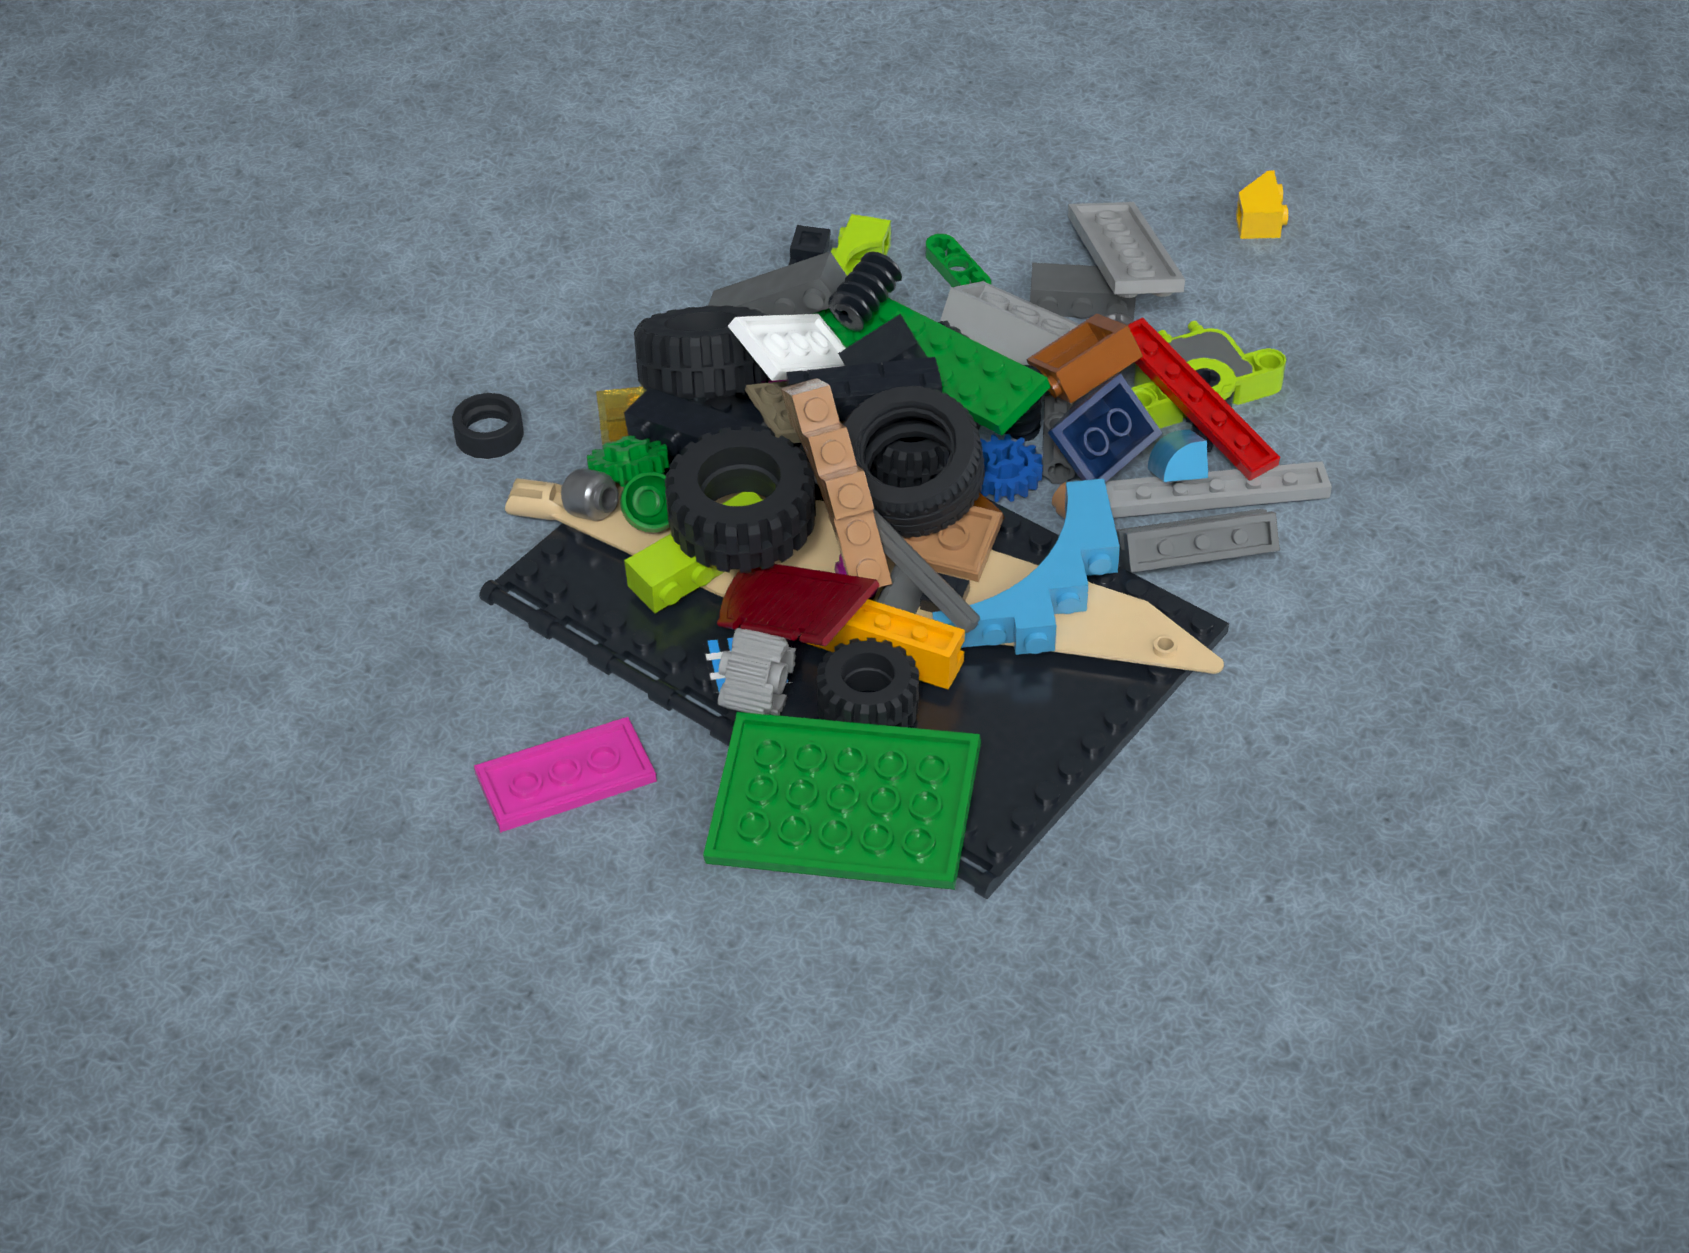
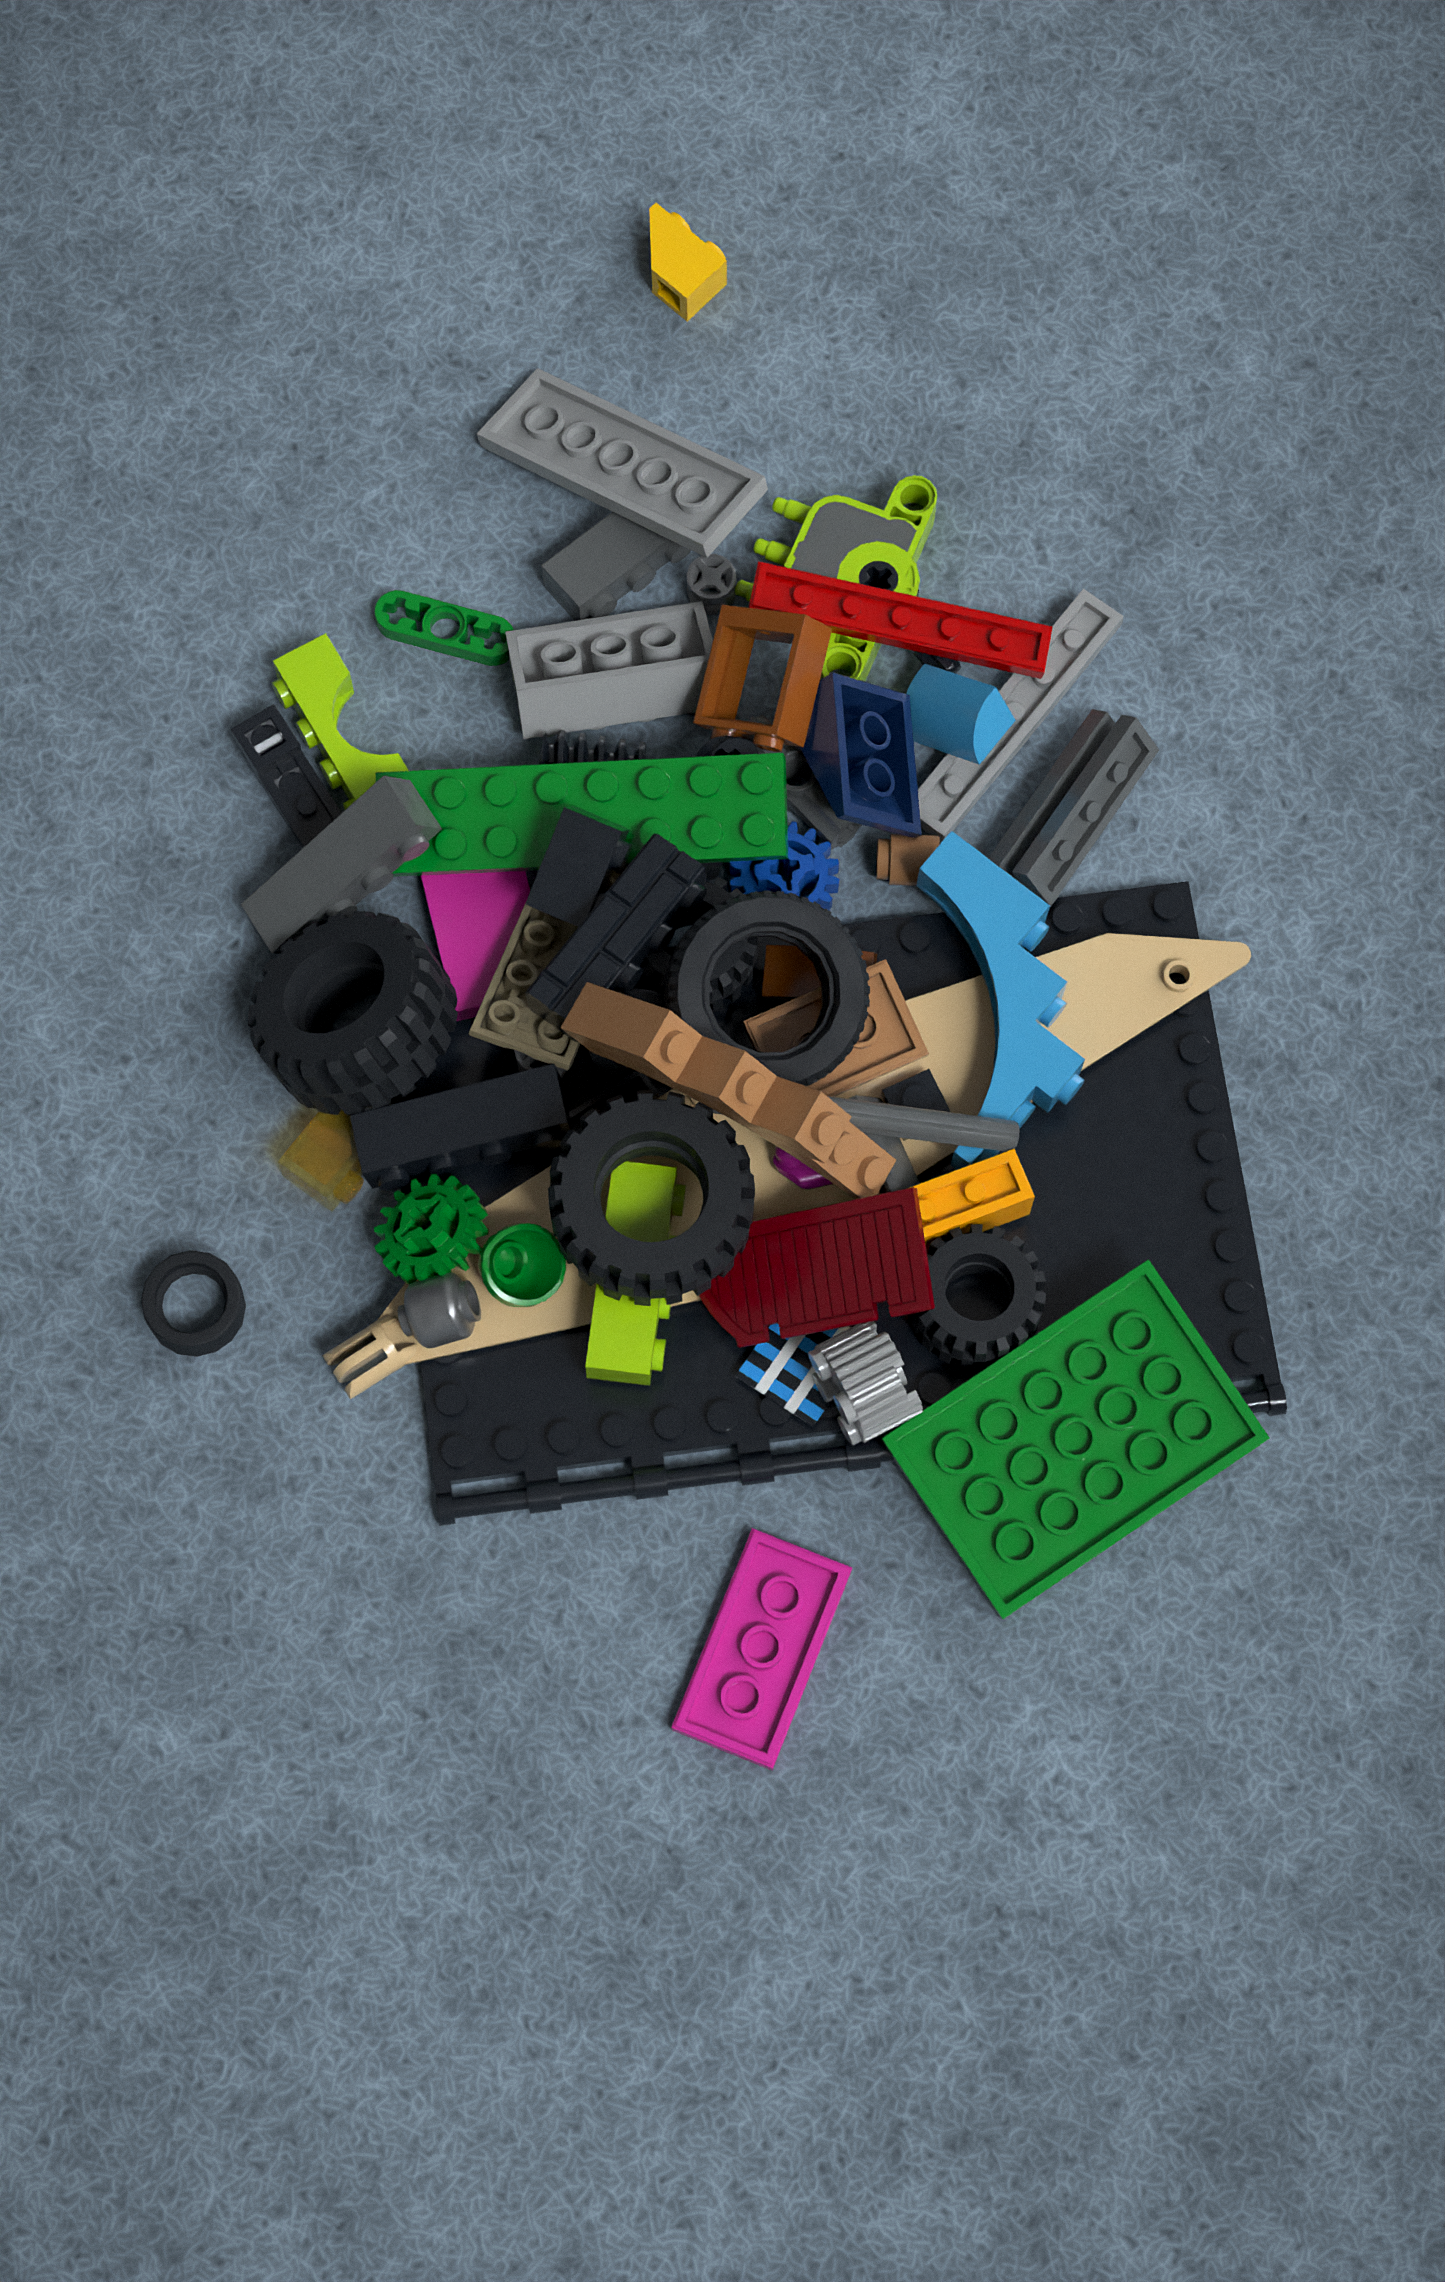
camera: 45 degrees left, 25 degrees up
(788, 343) = (469, 935): white tile -> none
(864, 290) = (462, 794): black piece -> none

